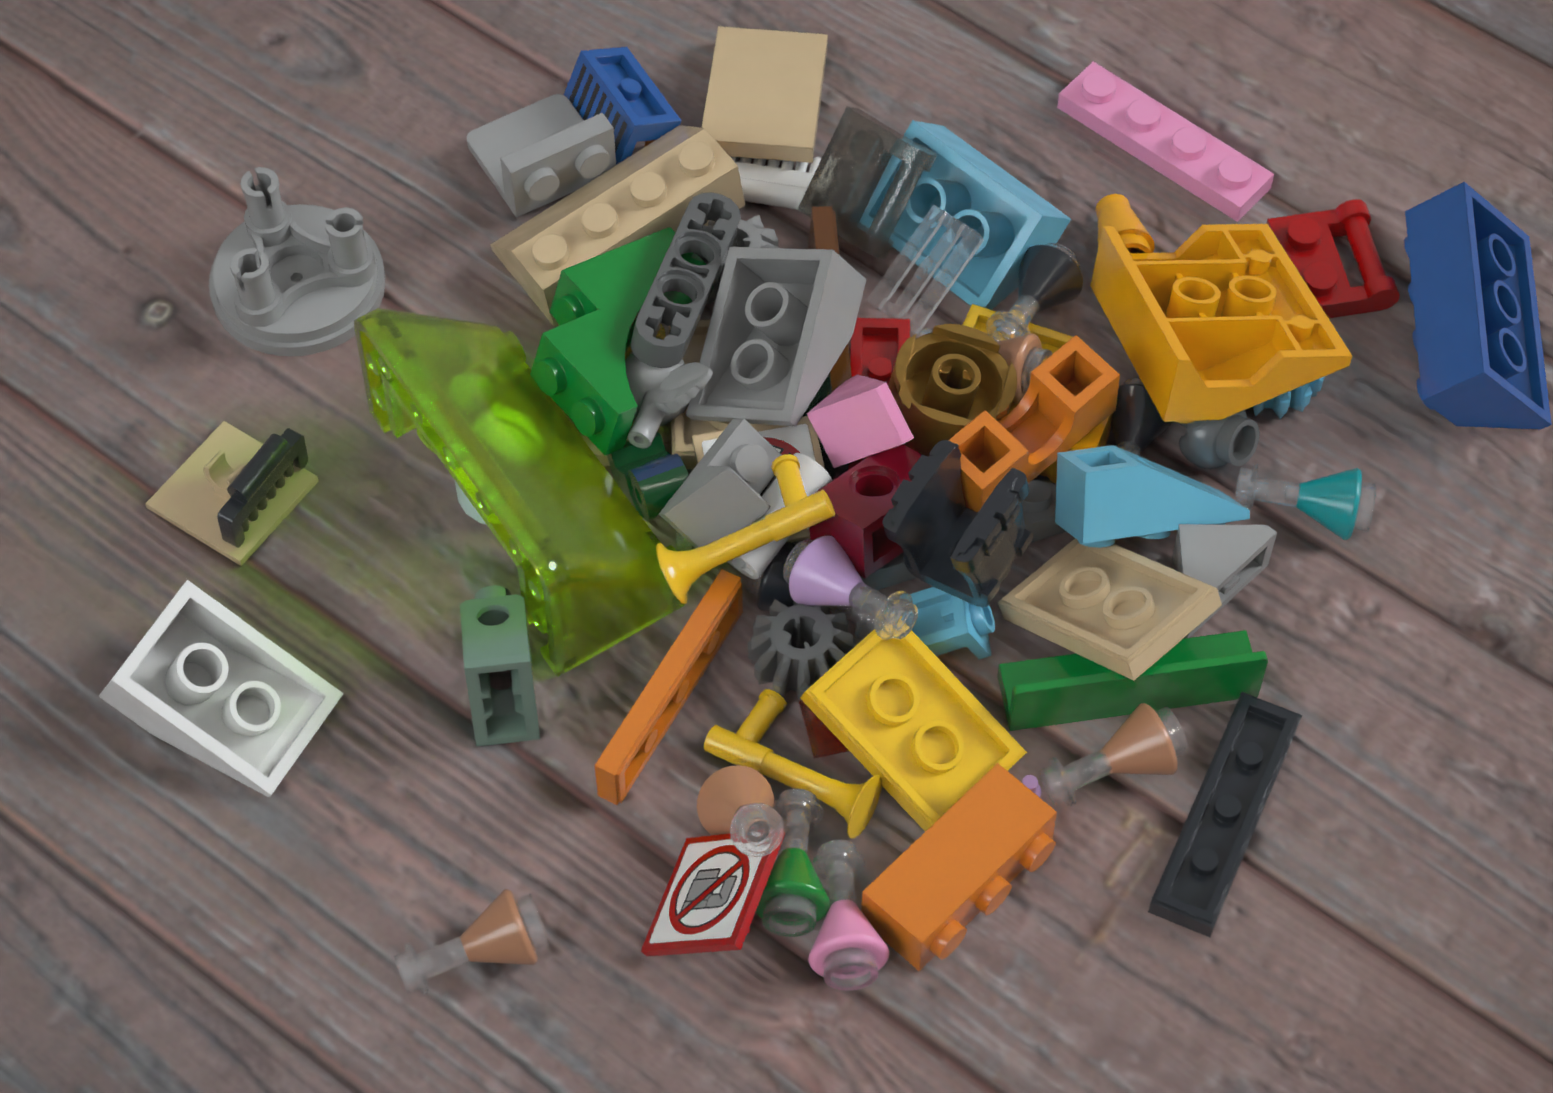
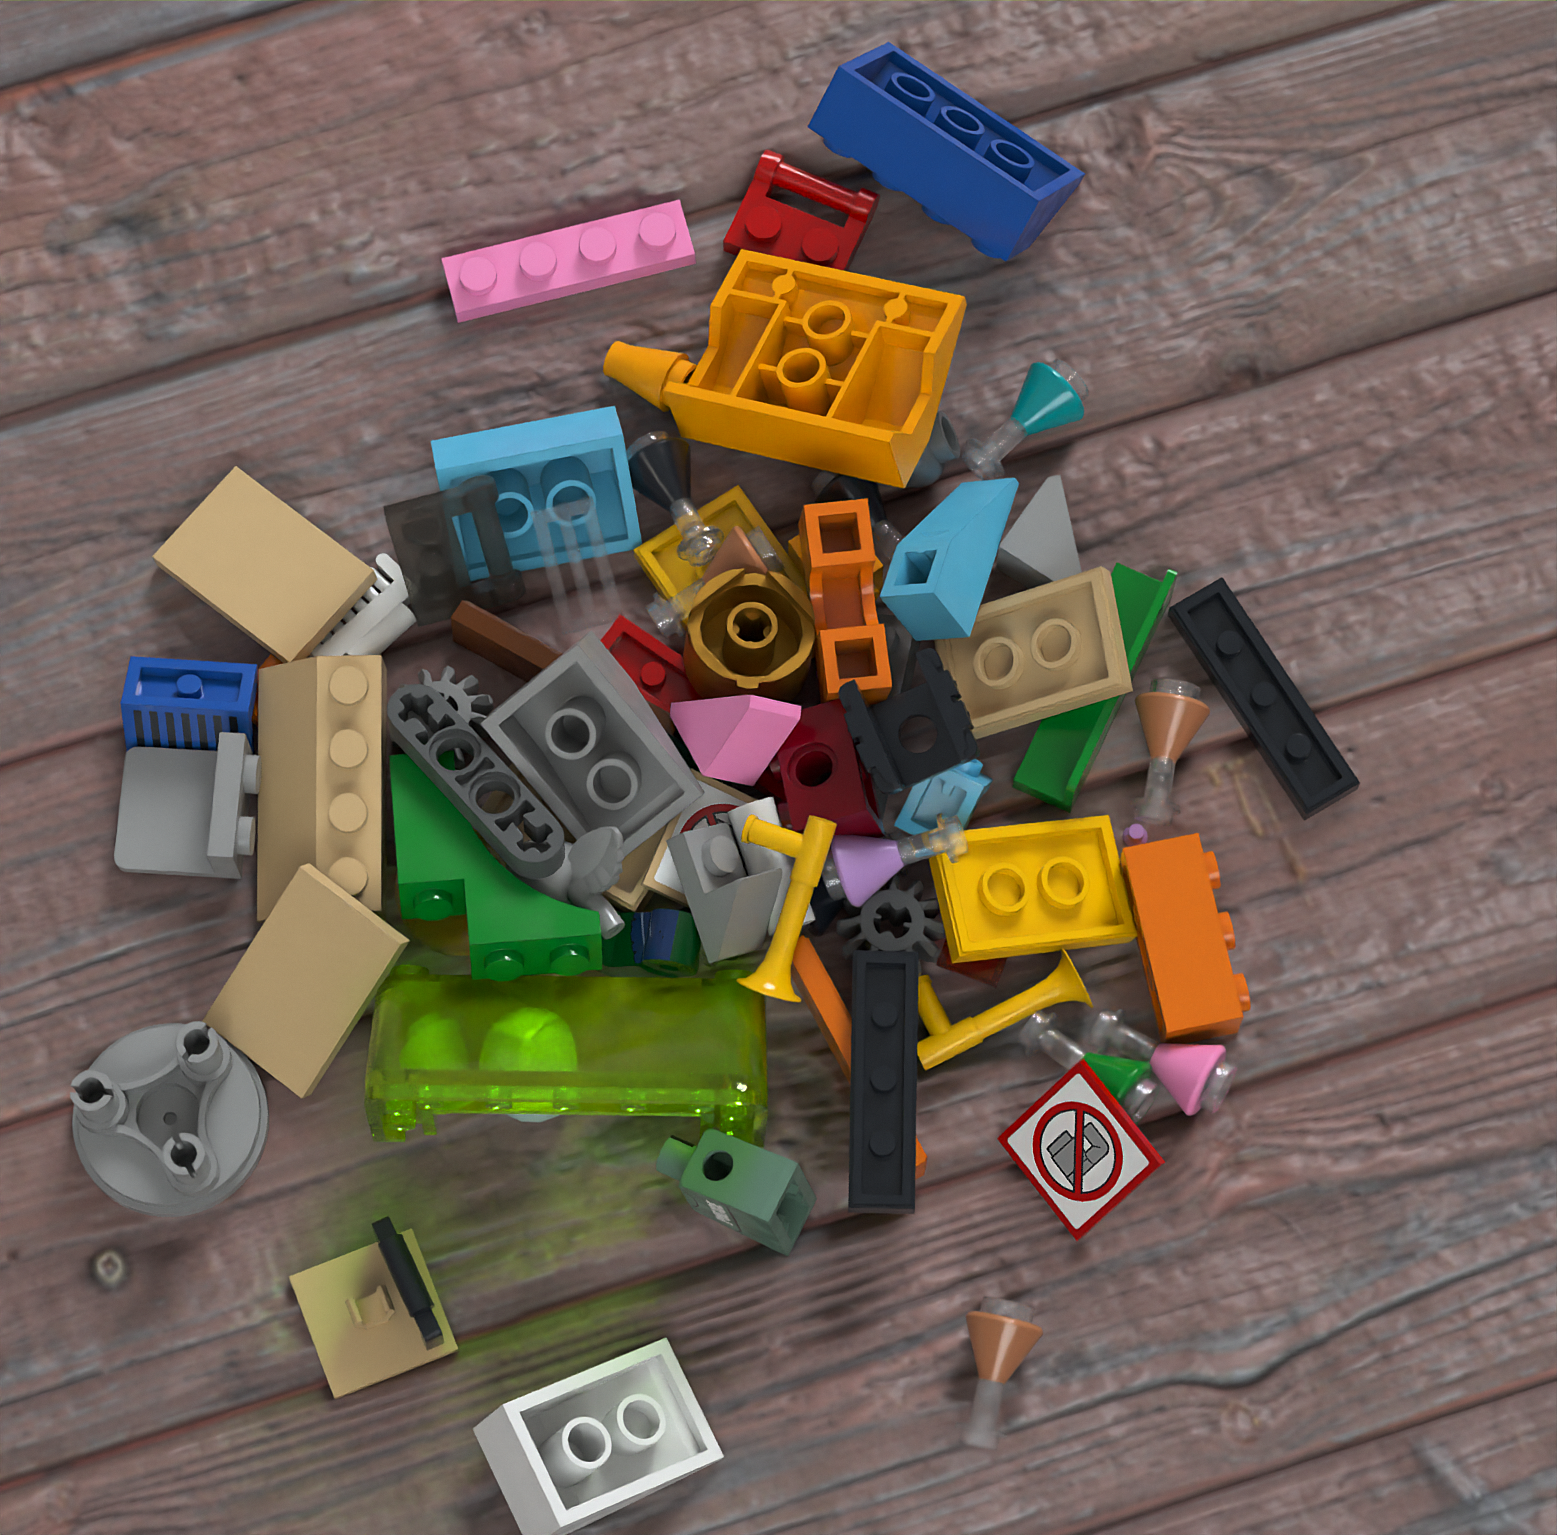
camera: 55 degrees left, 15 degrees up
(466, 273) = (305, 980): none -> tan tile
(655, 701) = (883, 1082): none -> black tile
(741, 804) = (1011, 1079): piece -> none

